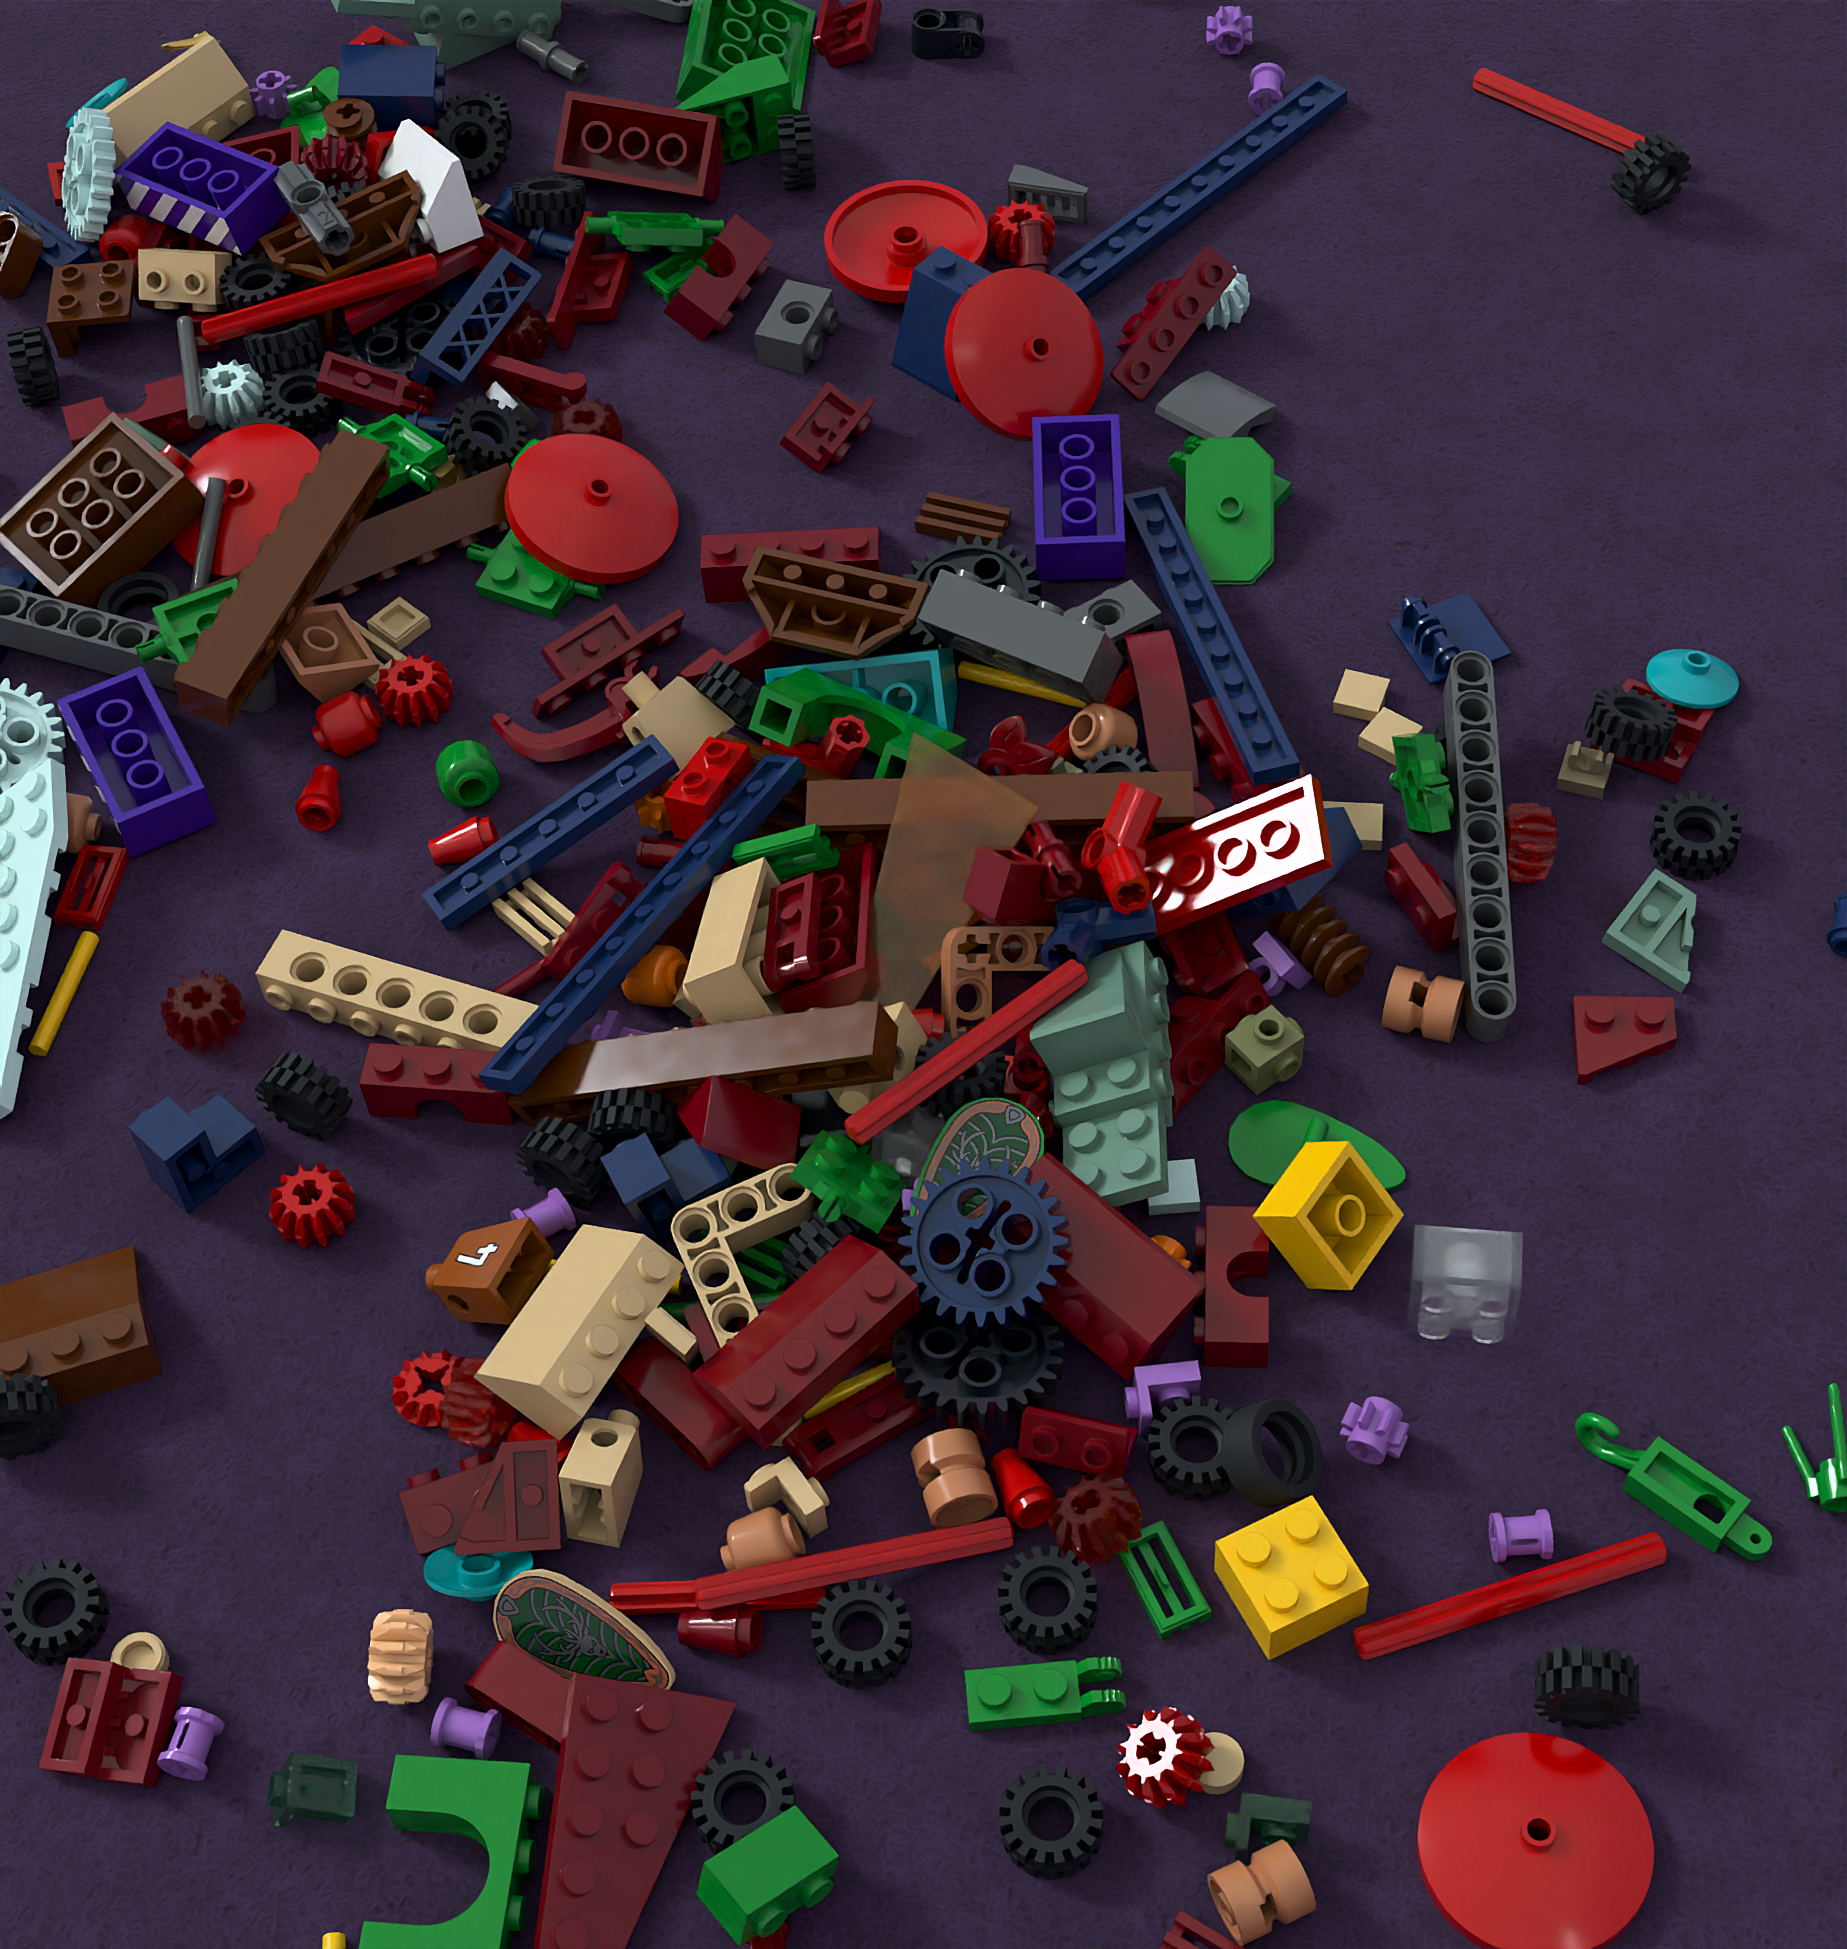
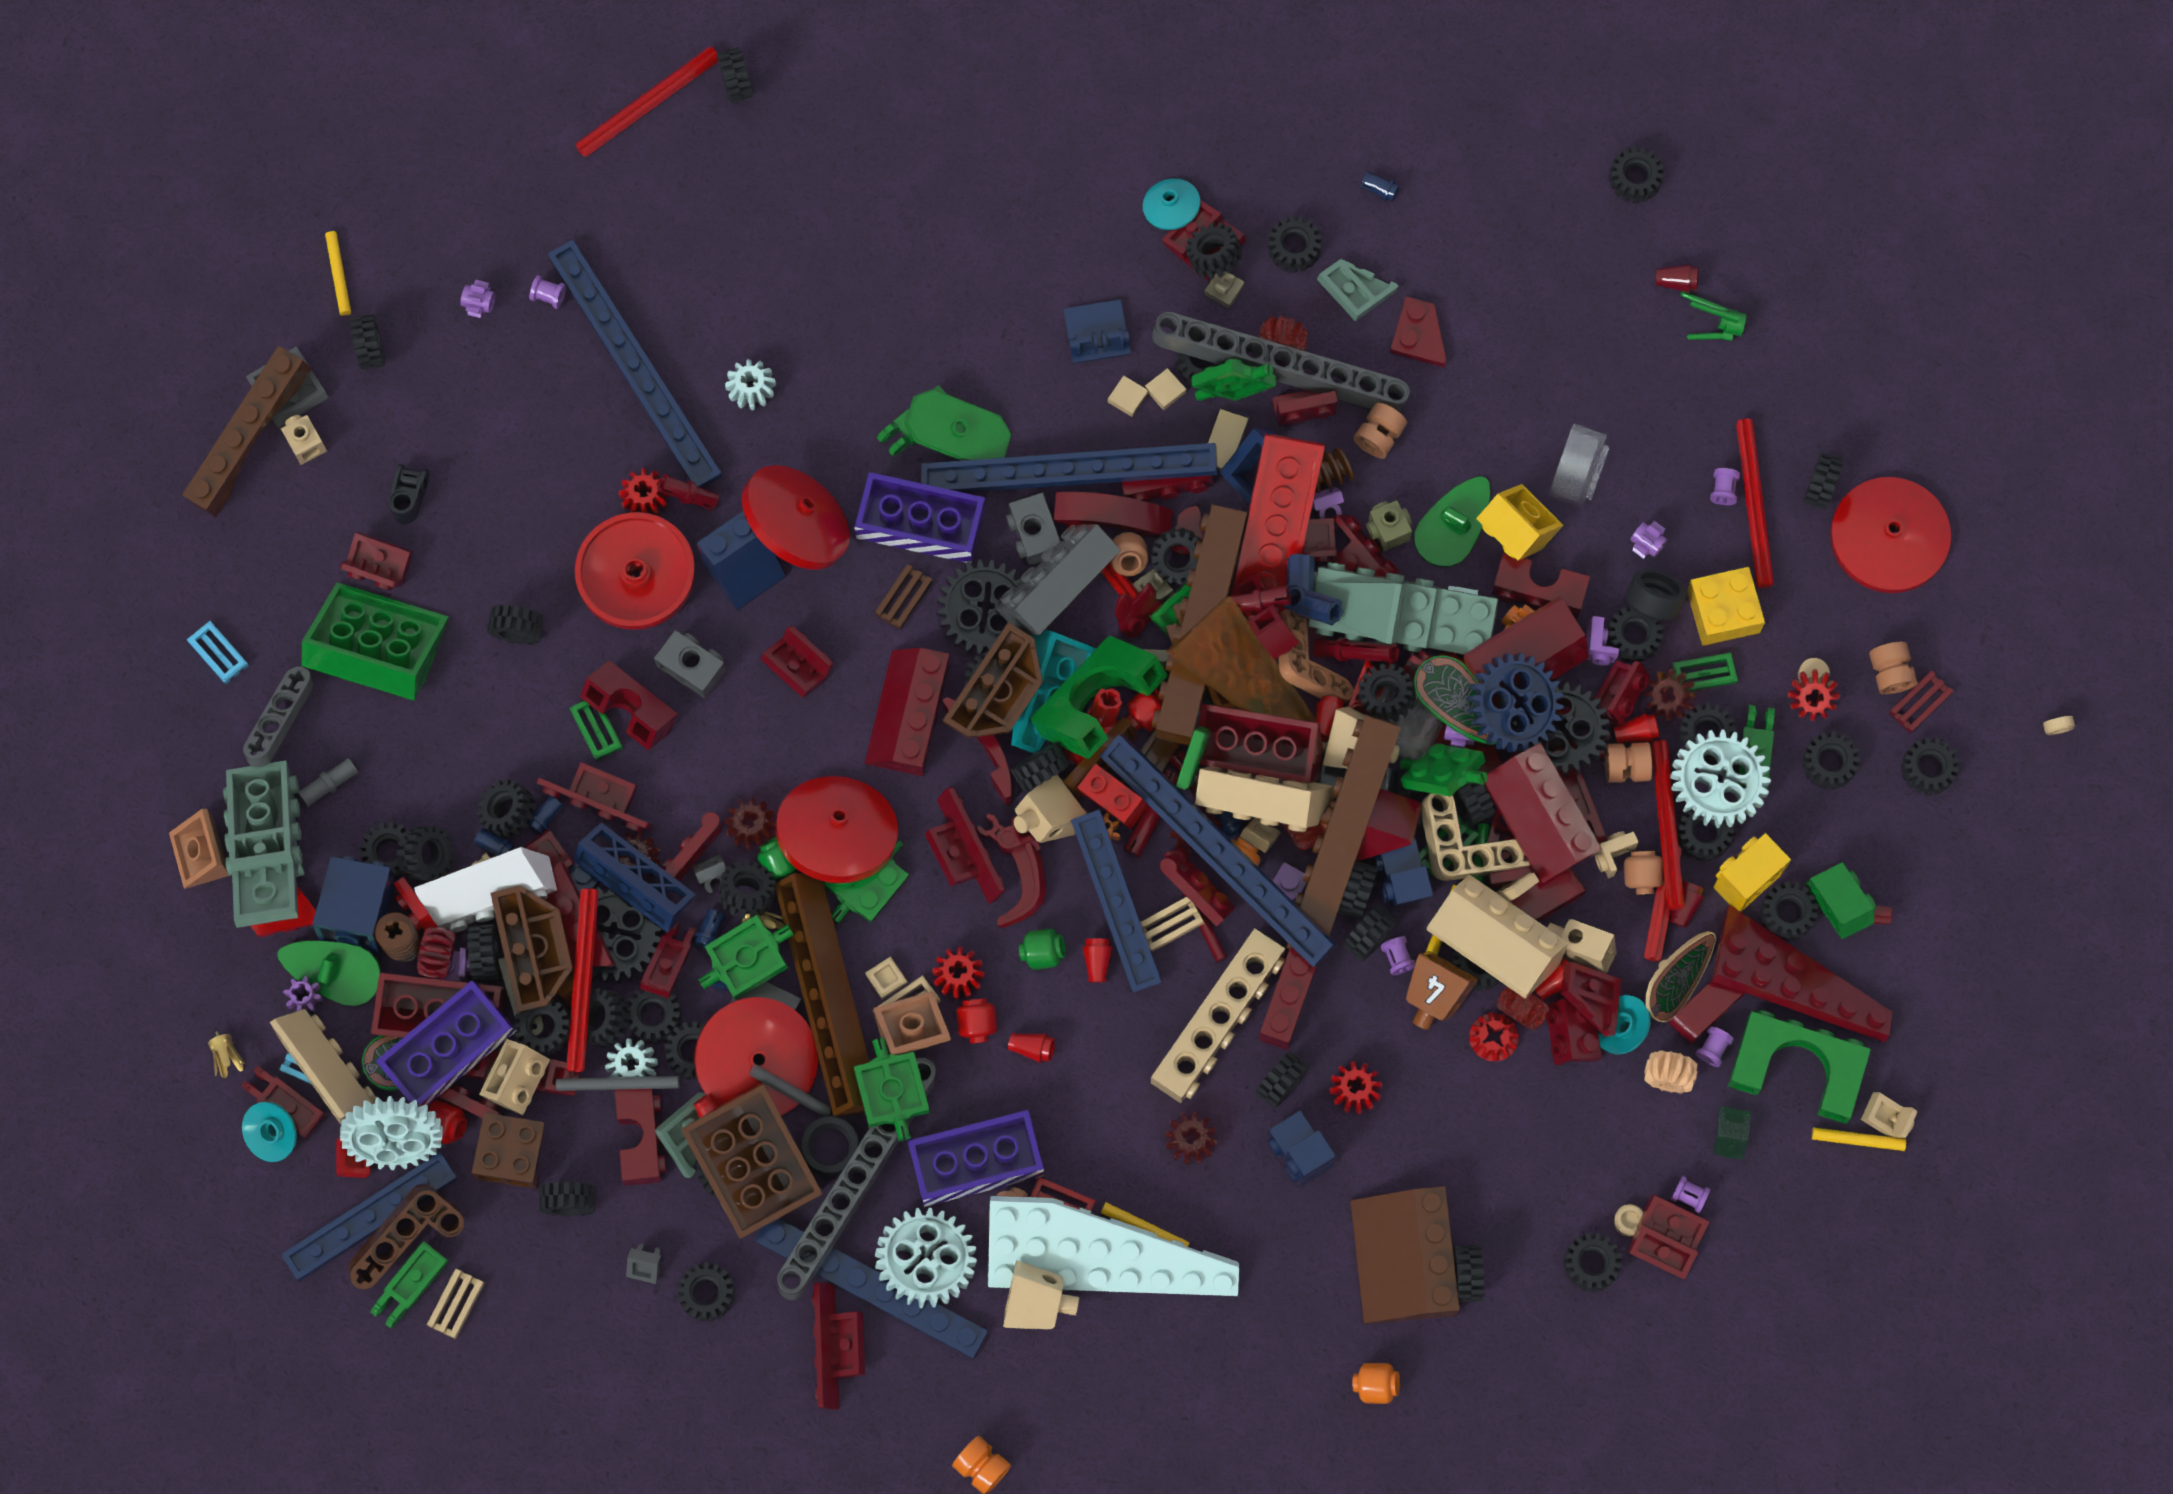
camera: 80 degrees left, 20 degrees up
(282, 578) = (873, 1029): reddish brown brick -> none
(314, 208) = (502, 966): dark grey piece -> none
(640, 146) = (486, 734): dark red slope -> none
(645, 229) = (565, 738): green plate -> none
(747, 106) = (462, 642): green slope -> none
(789, 1709) = (1752, 872): none -> yellow brick
(793, 933) = (1265, 762): dark red plate -> none
(965, 1052) = (1389, 680): red axle -> none
(1002, 1621) = (1727, 753): none -> light aqua gear
(1030, 183) = (609, 470): dark grey slope -> none
(1118, 849) = (1275, 563): red piece -> none
(1168, 321) = (774, 421): dark red bracket -> none
(1214, 407) = (859, 412): dark grey slope -> none
(1267, 1818) = (1854, 658): clear green bracket -> none
(1671, 1485) = (1713, 404): green piece -> none

